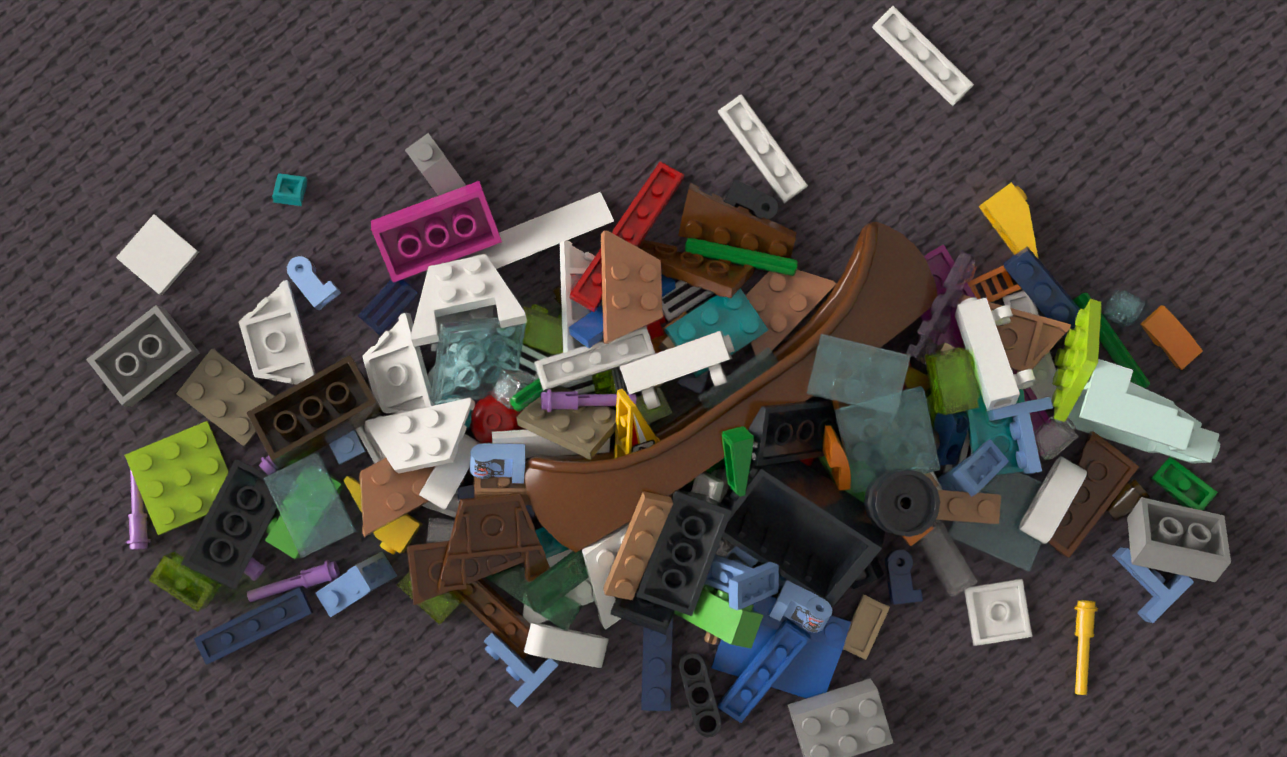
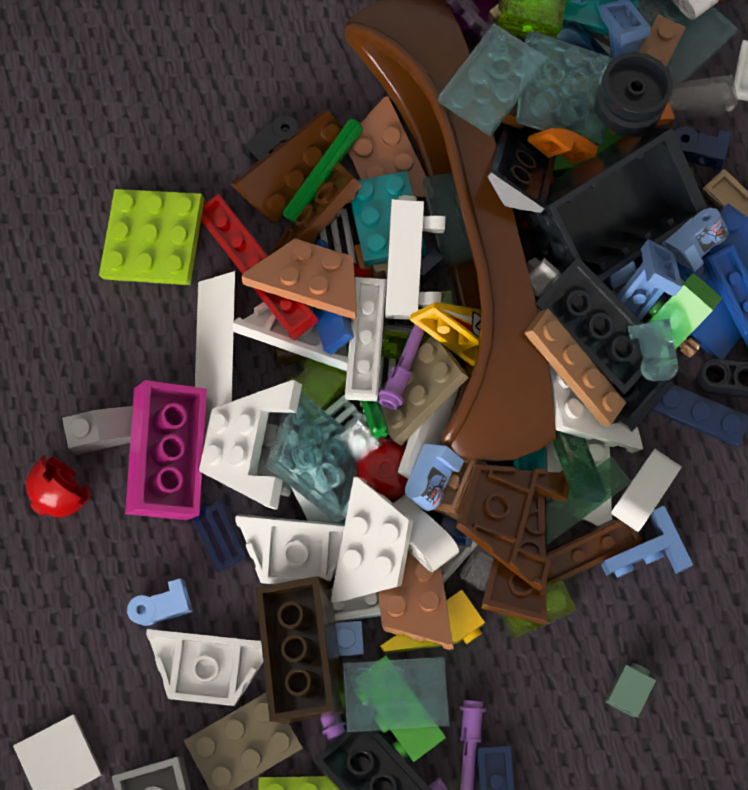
camera: 60 degrees left, 10 degrees down
(289, 189) = (54, 589): teal tile -> none
(356, 583) = (498, 687): medium blue bracket -> none
(369, 154) = (54, 489): none -> red cylinder
(396, 694) = (630, 689): none -> sand green brick
(621, 135) = (152, 236): none -> lime plate
(684, 609) = (657, 349): none -> clear light blue leg
(737, 455) = (529, 227): green slope -> none
(762, 148) = (225, 113): white tile -> none

